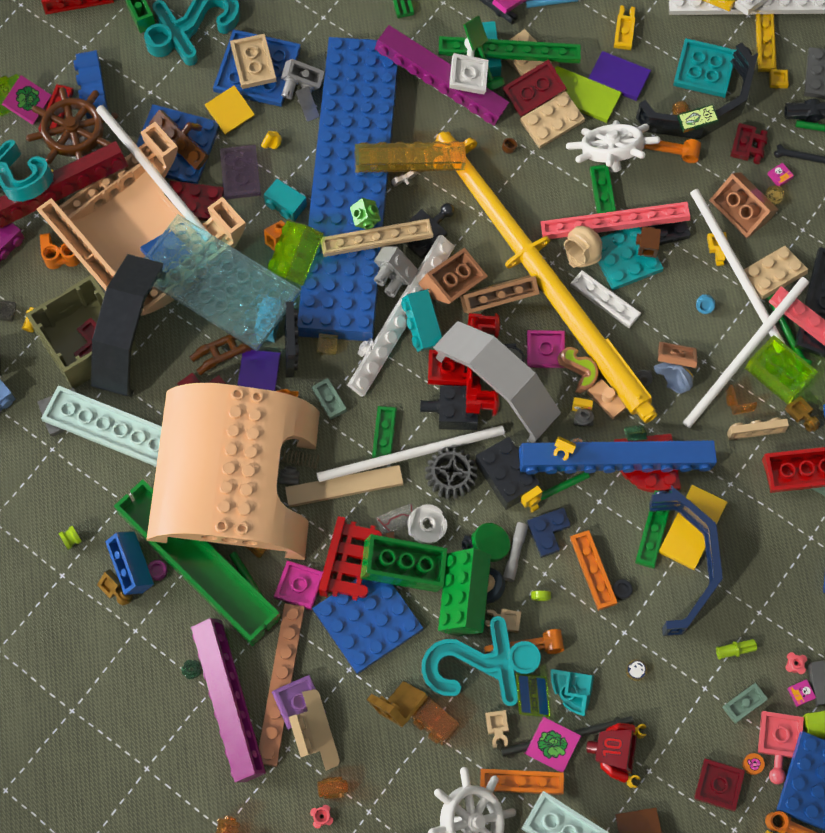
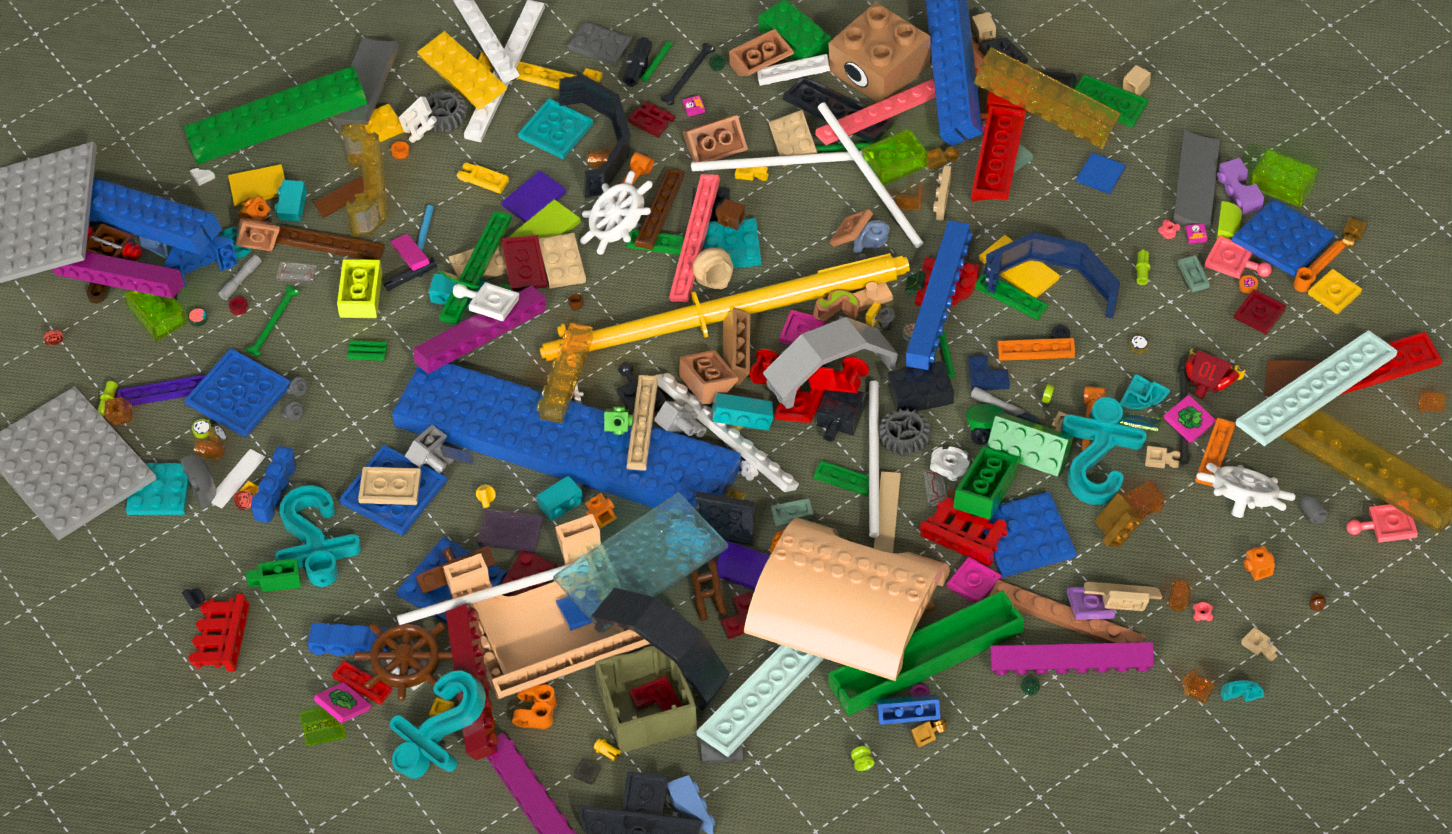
camera: 70 degrees left, 15 degrees down
(229, 110) = (435, 522): yellow tile -> none
(295, 252) = (630, 491): clear neon green brick -> none
(532, 498) = (955, 370): yellow plate -> none
(564, 445) = (922, 319): yellow tile -> none
(605, 299) = (769, 271): white tile -> none
(641, 182) = (659, 209): none -> reddish brown tile
(698, 118) = (623, 136): tile -> none
(705, 304) = (805, 196): dark azure tile -> none
(775, 194) = (711, 114): clear yellow tile -> none

